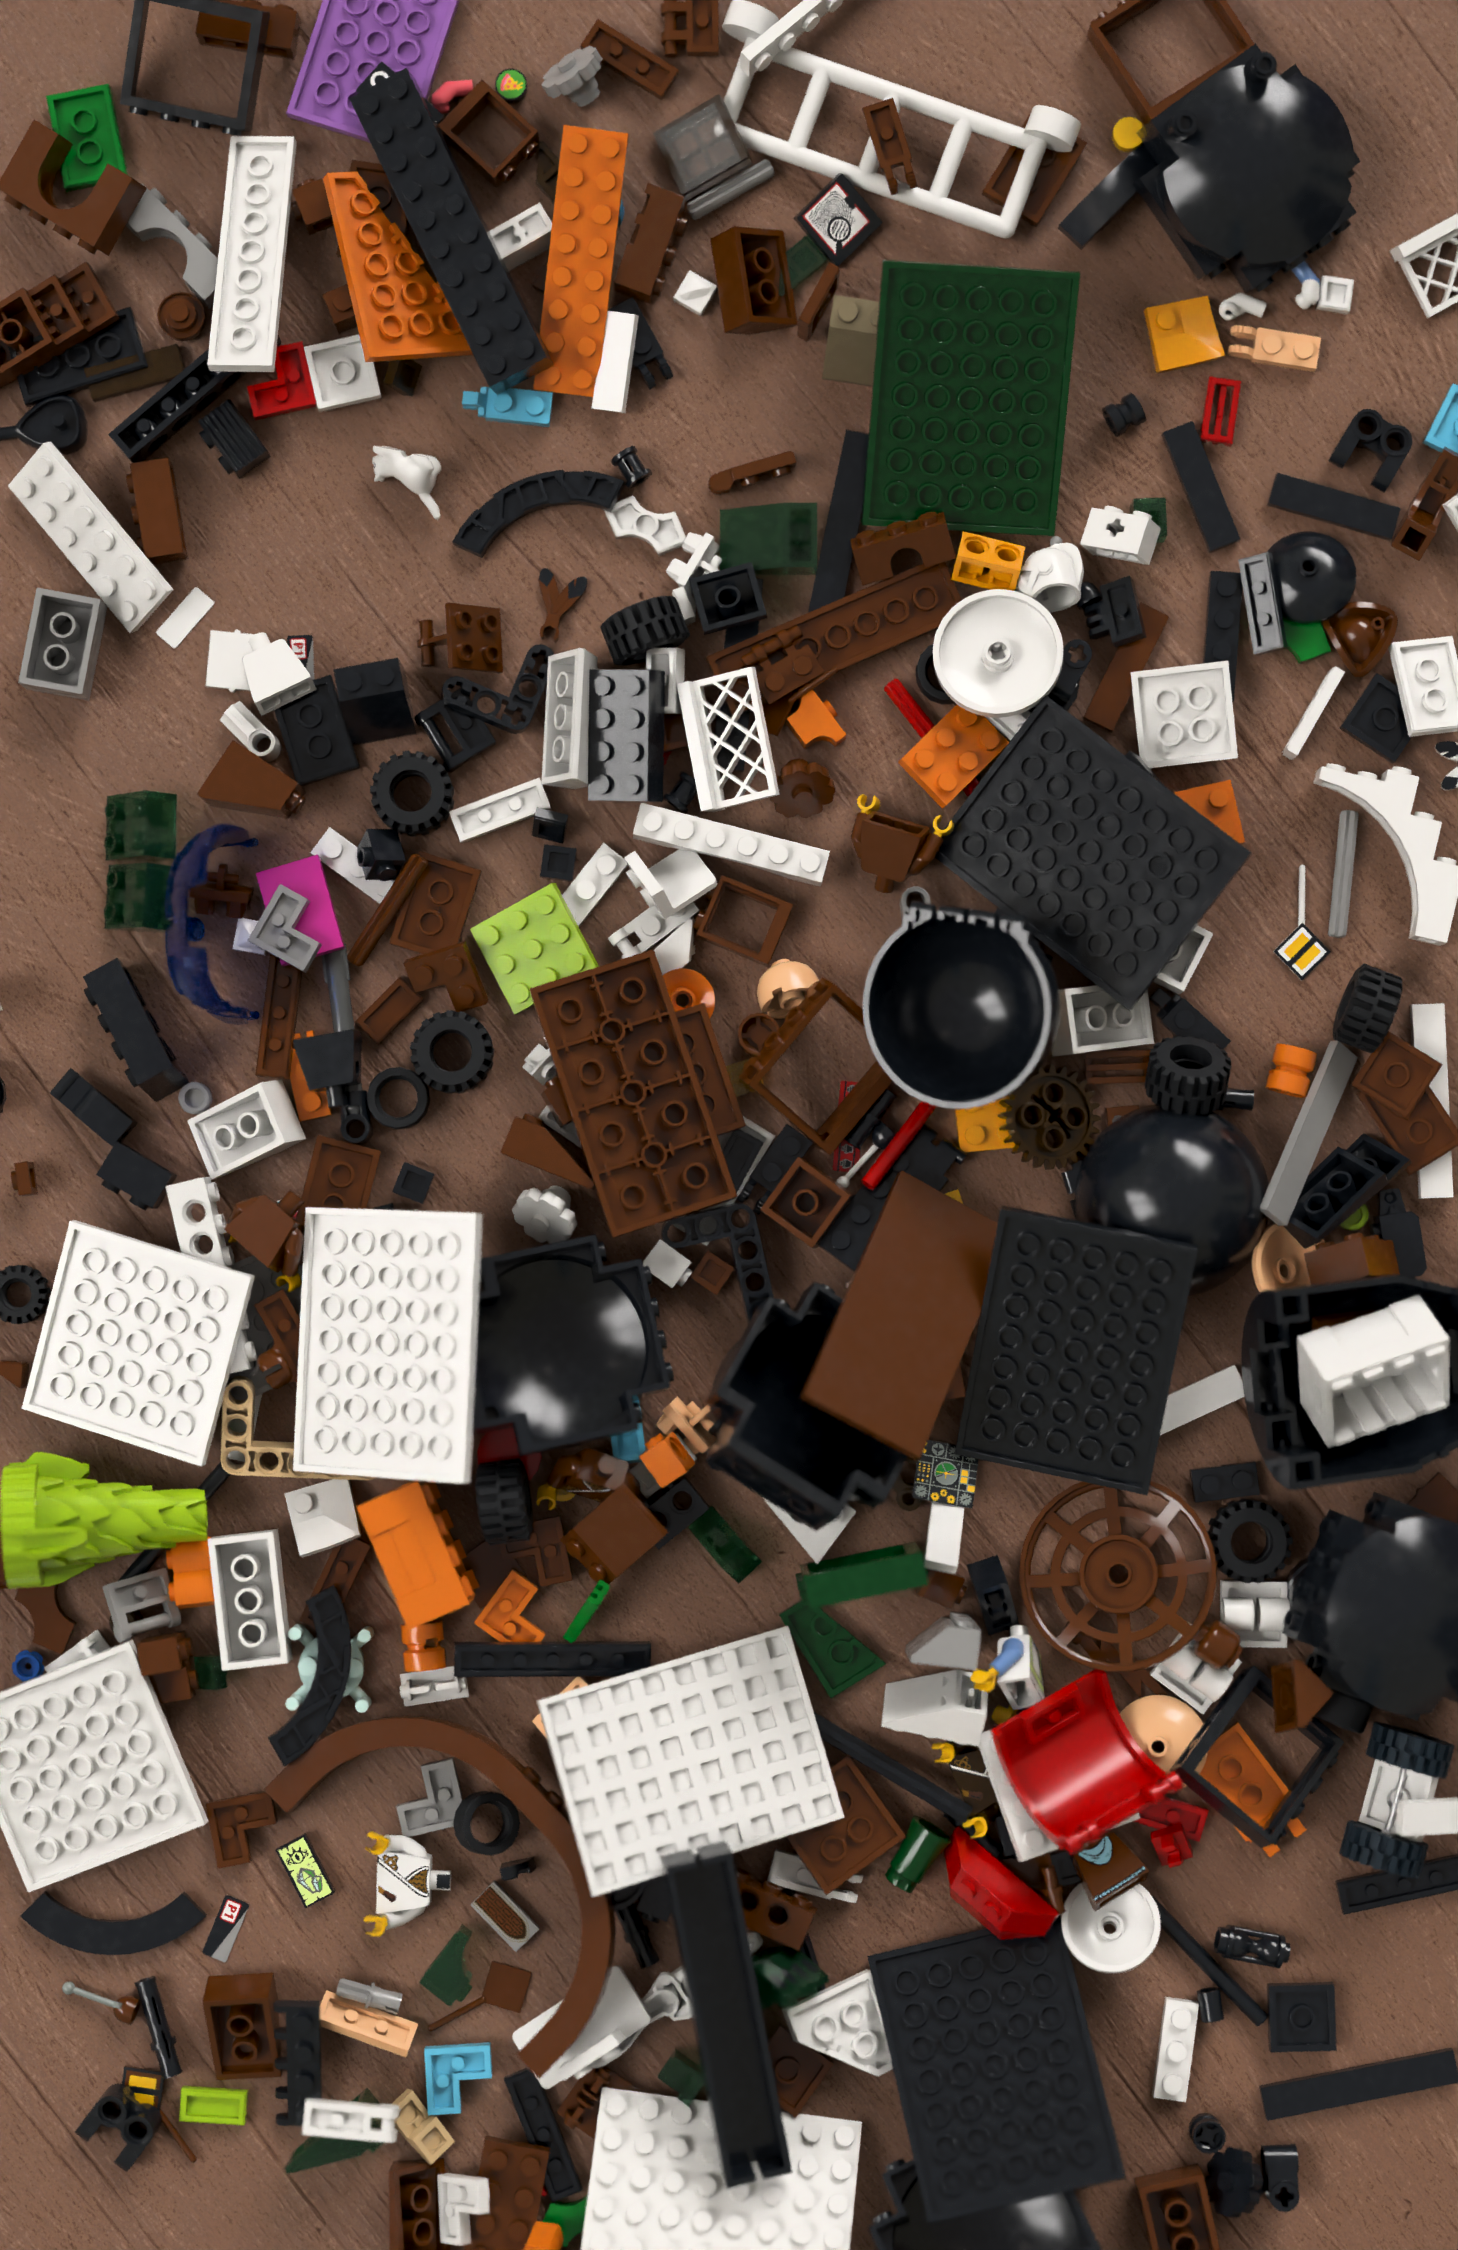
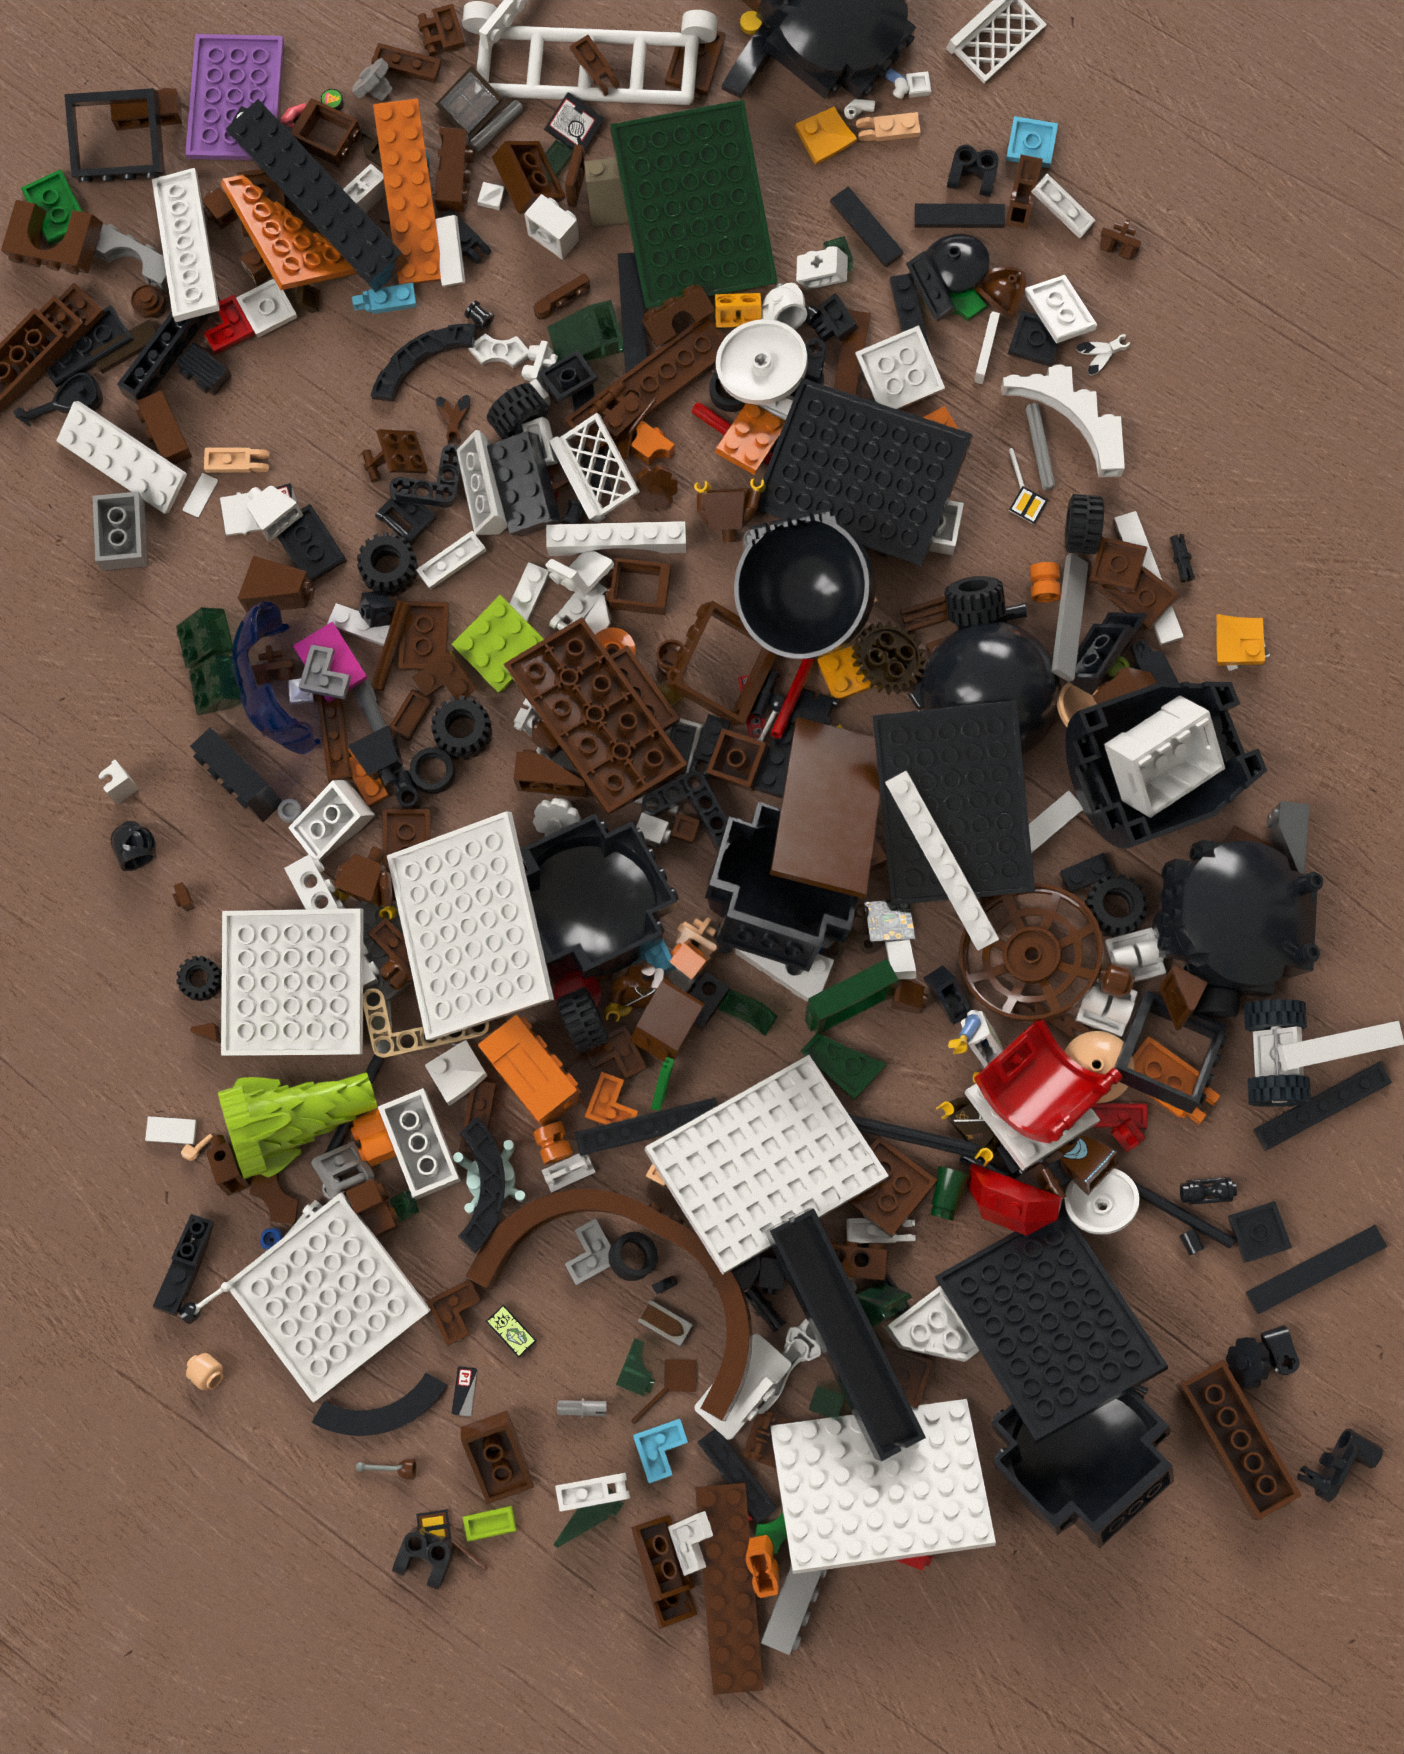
camera: 10 degrees left, 10 degrees down
(93, 1108) = (220, 836): black piece -> none
(135, 1175) = (261, 873): black brick -> none
(158, 2027) = (435, 1478): black pin -> none
(242, 582) = (234, 460): none -> light nougat hinge
(250, 730) = (260, 549): white piece -> none
(302, 2058) = (546, 1467): black hinge -> none
(367, 2025) = (585, 1429): light nougat plate -> none
(375, 701) = (345, 508): black slope -> none
(403, 1881) = (584, 1315): white torso -> none
(413, 1183) = (457, 820): black plate -> none
(415, 471) = (332, 355): white animal -> none
(421, 2130) = (647, 1496): tan slope -> none
(549, 825) = (488, 560): black tile -> none
(558, 863) = (500, 583): black plate -> none
(766, 368) = (552, 226): none -> white brick
(784, 987) = (679, 619): light nougat cylinder -> none
(937, 1707) = (934, 1079): white slope -> none
(947, 1643) = (927, 1031): light grey slope -> none
(1036, 1421) = (942, 860): none -> white plate
(1098, 1022) = (904, 585): white slope -> none
(1121, 416) = (798, 196): black wheel -> none
(1175, 2049) = (1176, 1282): white plate -> none
(1185, 1020) = (958, 568): black hinge -> none
(1208, 2140) = (1221, 1332): black wheel -> none
(1216, 438) = (866, 193): red tile -> none

